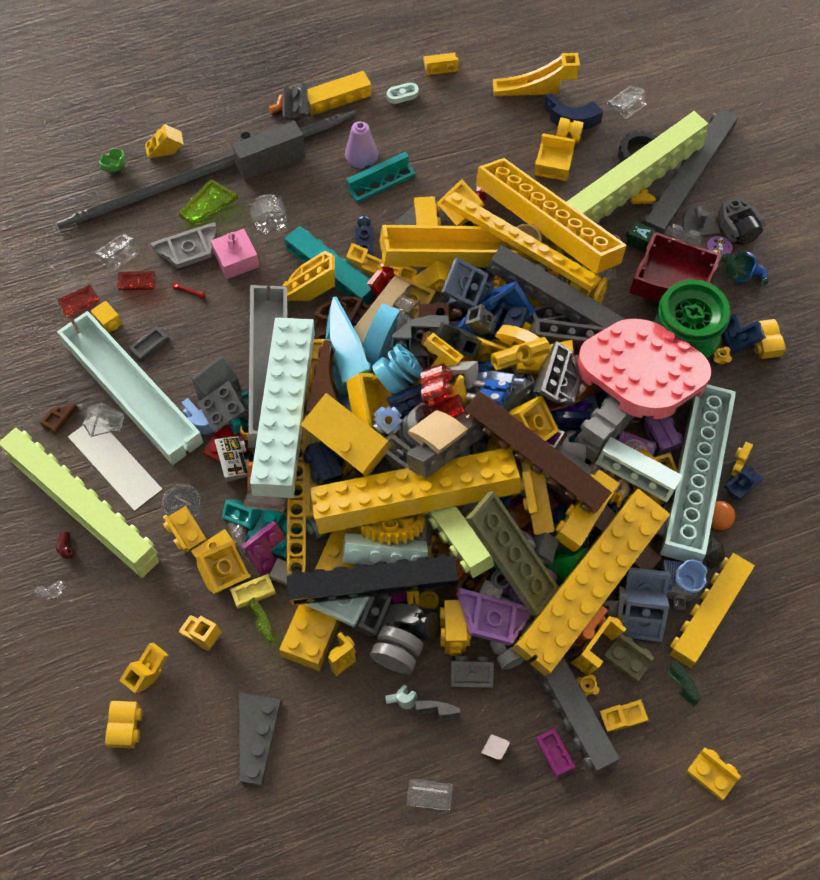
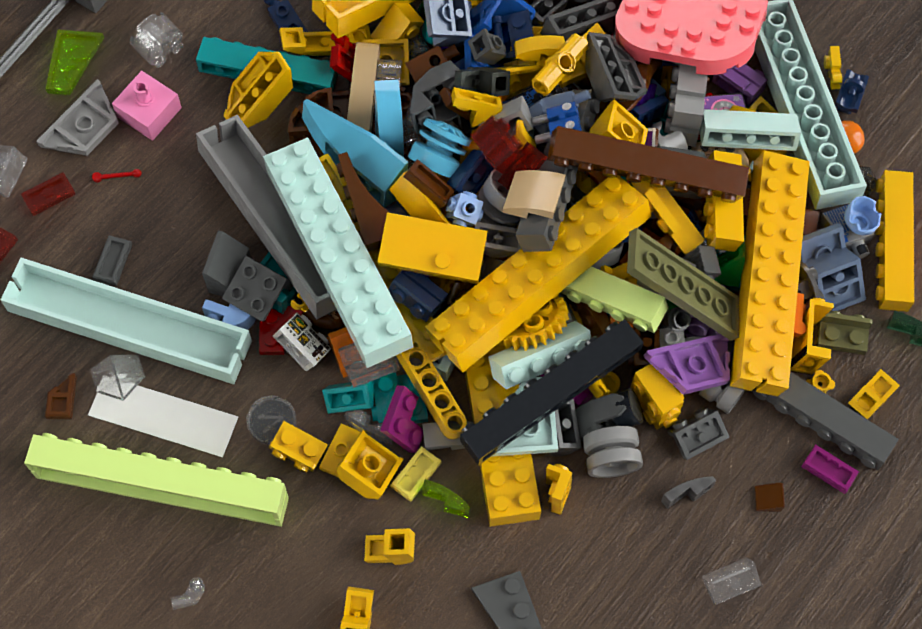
camera: 30 degrees left, 5 degrees up
(63, 547) = (169, 540): dark red arm -> none
(106, 317) = (43, 252): yellow brick -> none
(372, 389) = (429, 183): none -> reddish brown tile
(404, 700) = (644, 499): light aqua piece -> none

